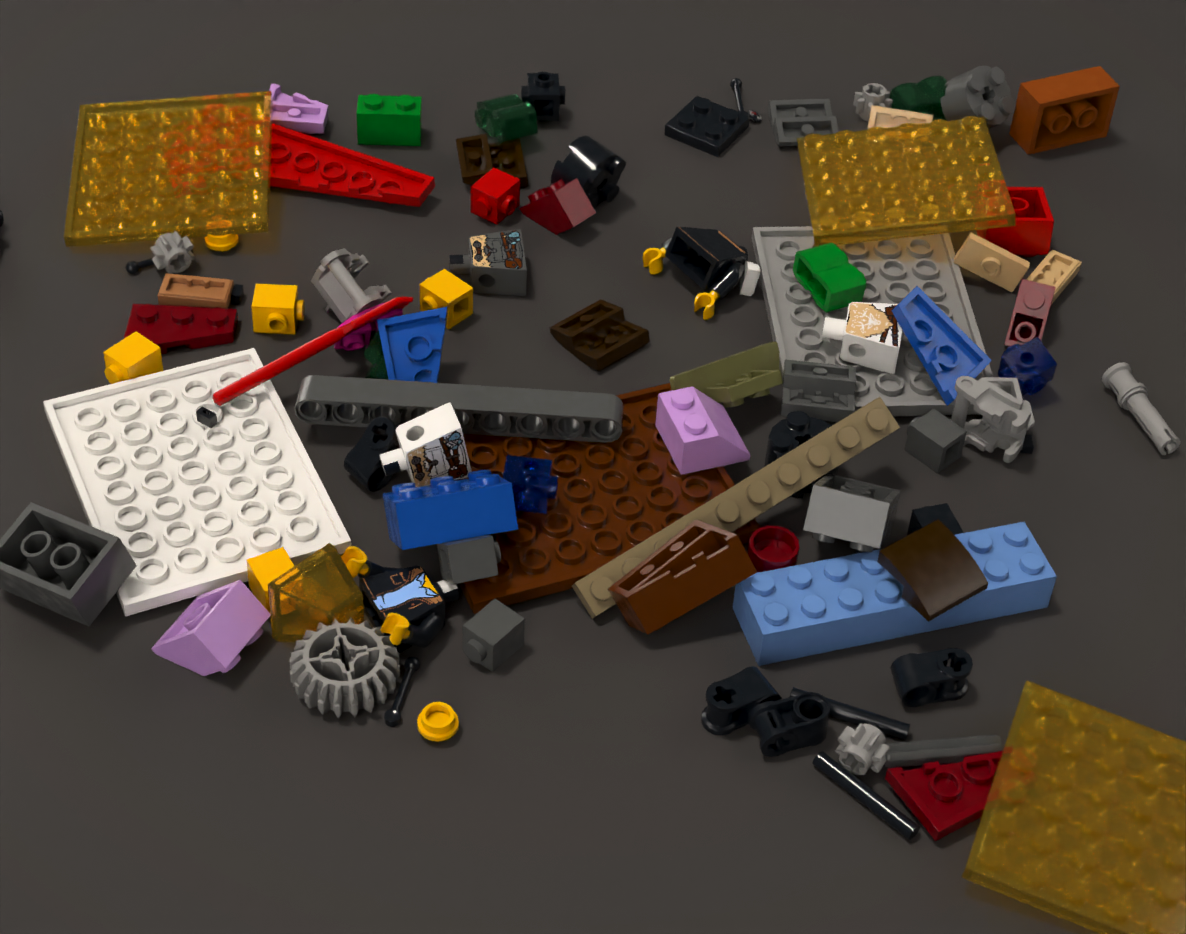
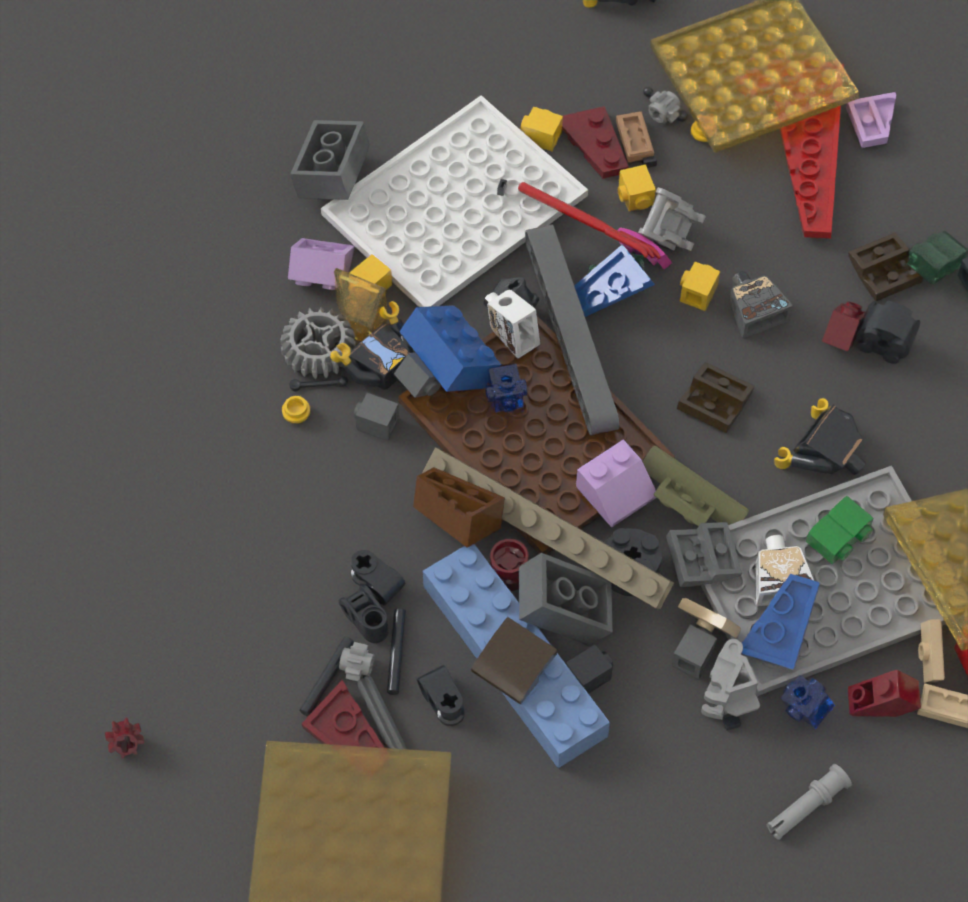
camera: 75 degrees right, 15 degrees up
(389, 120) = (891, 181): green brick -> none
(495, 195) = (837, 280): red brick -> none
(749, 279) = (831, 478): white tile -> none
(908, 406) = (709, 619): none -> tan plate

